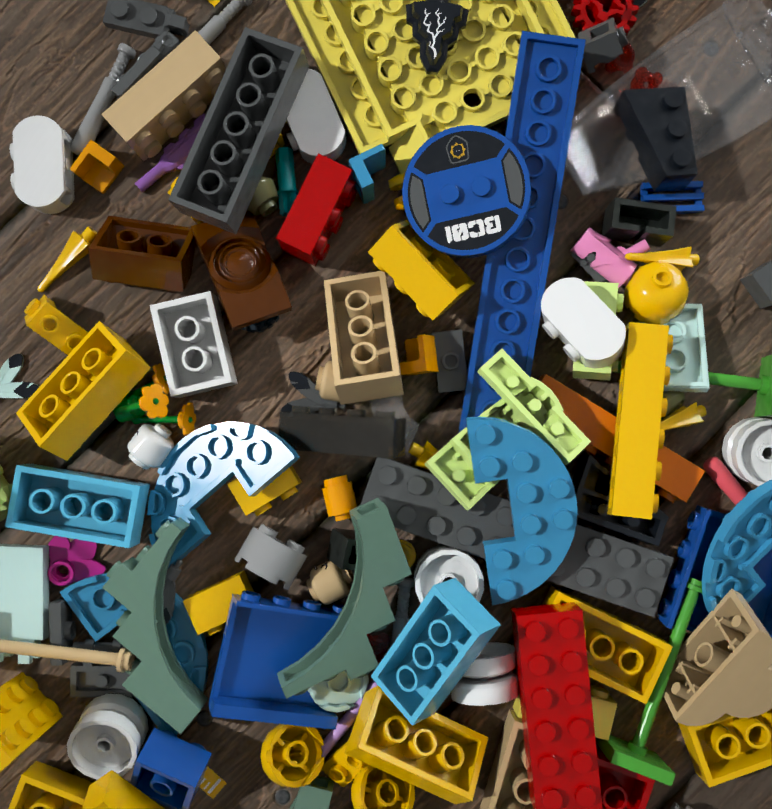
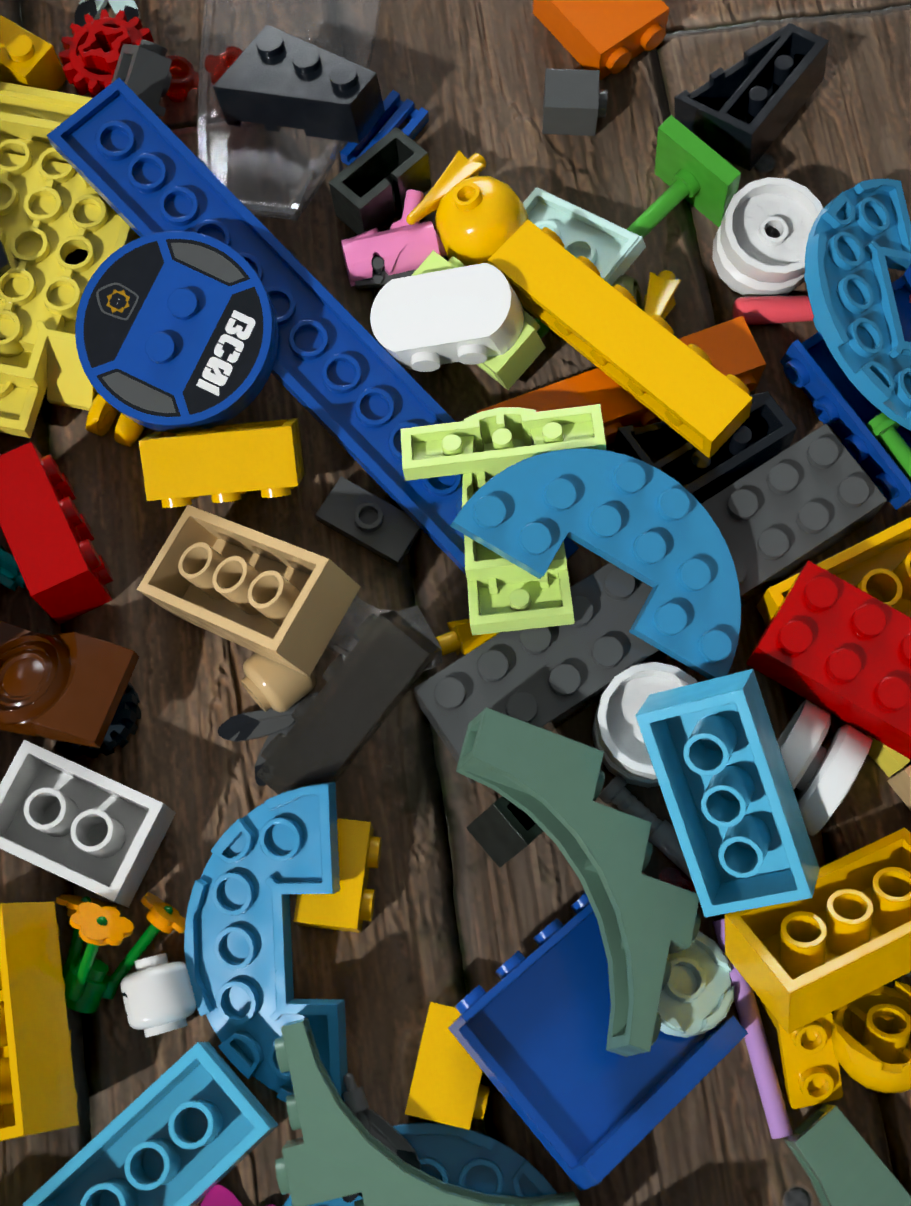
camera: 50 degrees left, 15 degrees down
(271, 557) = (438, 935): light grey brick -> none
(292, 755) = (740, 1124): yellow cylinder -> none
(329, 583) = (537, 887): tan head -> none
(339, 497) = (432, 789): light orange brick -> none
(364, 166) = (50, 435): dark azure panel -> none
(420, 356) = (335, 543): light orange panel -> none

